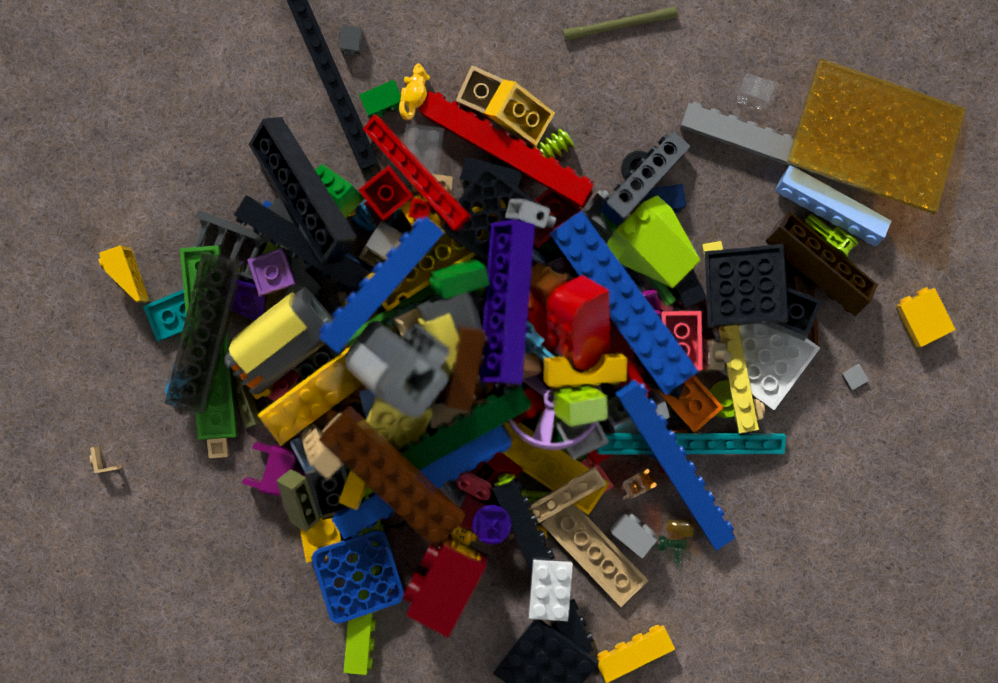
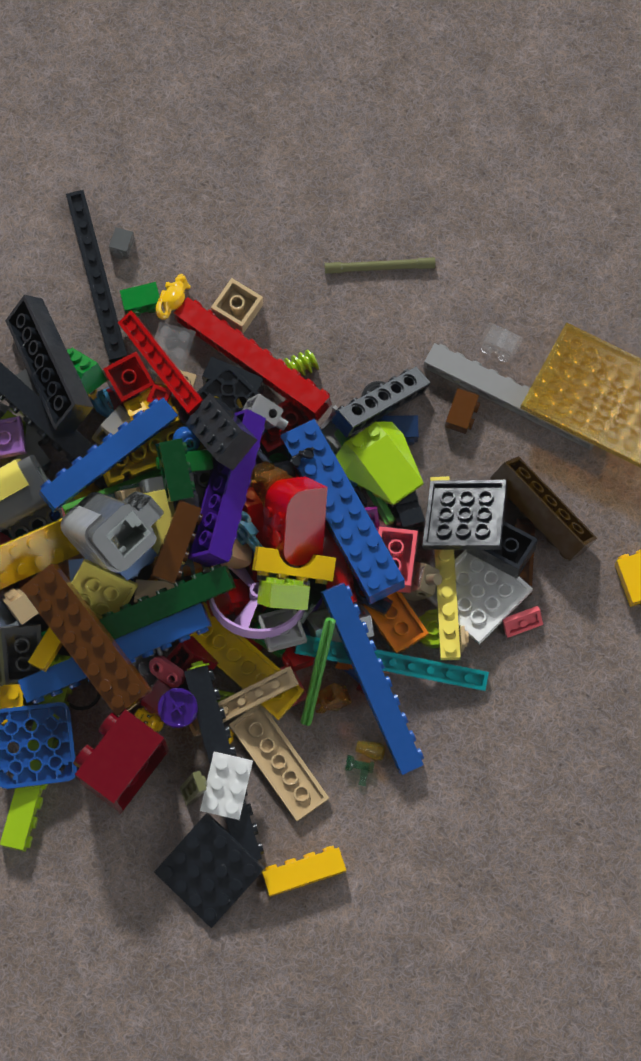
camera: 10 degrees right, 15 degrees down
(398, 222) = (134, 406): none -> yellow plate
(452, 297) = (175, 469): none -> dark green brick
(456, 255) = (188, 437): none -> blue head
(492, 248) = (221, 432): none -> black brick
(519, 112) = (270, 326): yellow brick -> none
(519, 596) = (193, 787): none -> olive plate
(581, 251) = (307, 453): none -> black piece
(622, 465) = (318, 671): none -> bright green axle
(632, 534) = (320, 744): light grey brick -> none
(725, 170) = (461, 411): none -> reddish brown brick
(812, 379) = (522, 621): none -> coral plate
(833, 206) = (562, 458): brick -> none
(836, 237) = (562, 488): lime connector -> none
(855, 377) = (565, 626): light grey tile -> none

